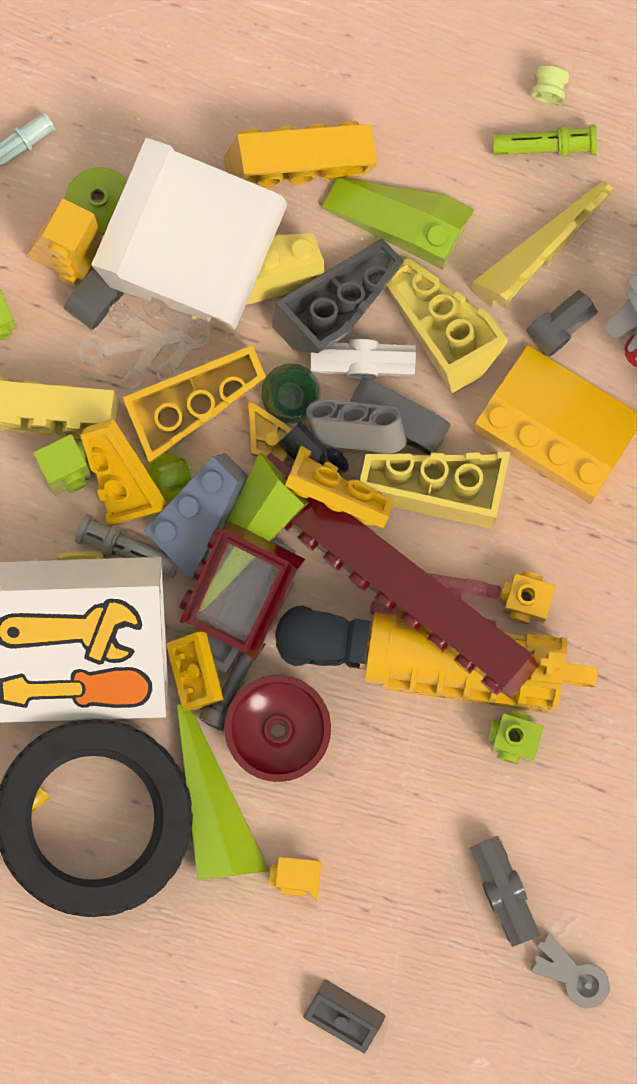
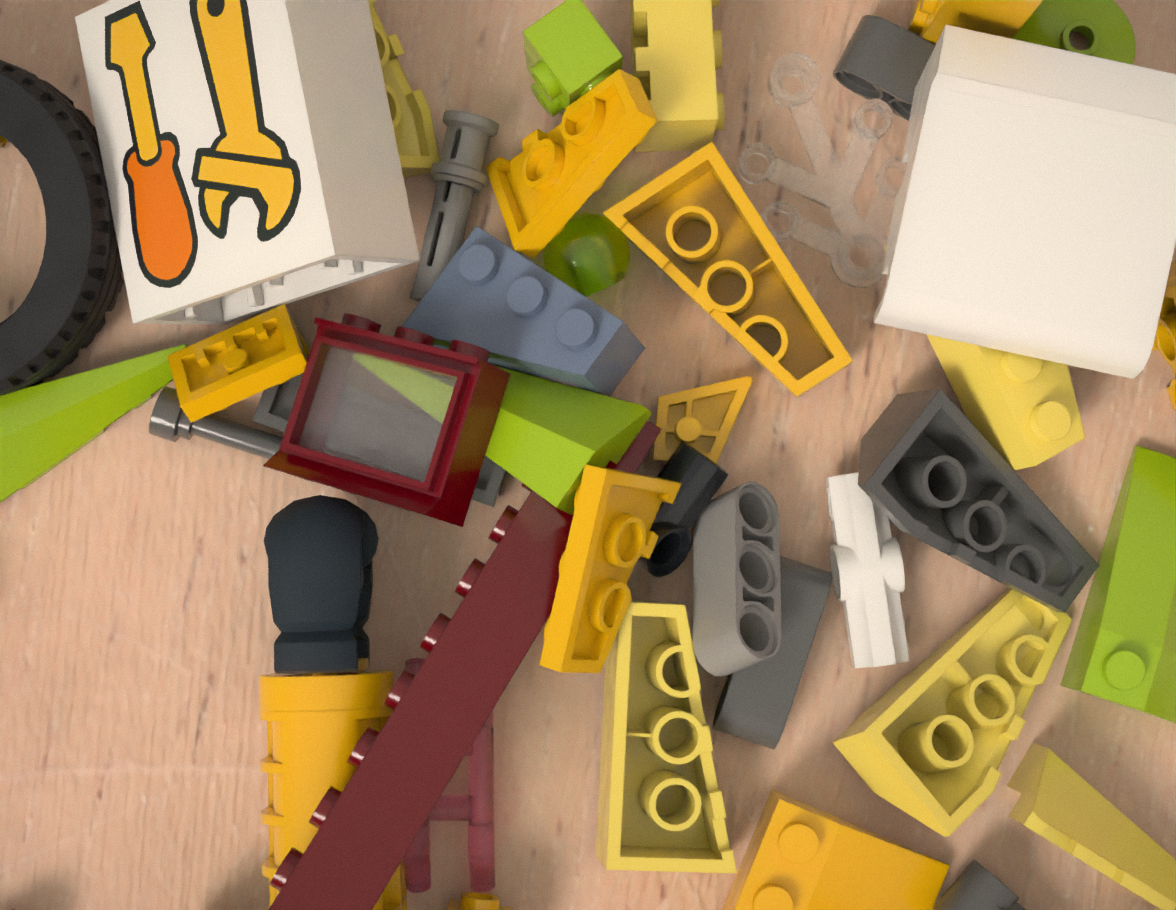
camera: 80 degrees right, 5 degrees up
(273, 702) = (117, 524): dark red dish -> none
(289, 392) = (782, 447): clear green hat -> none

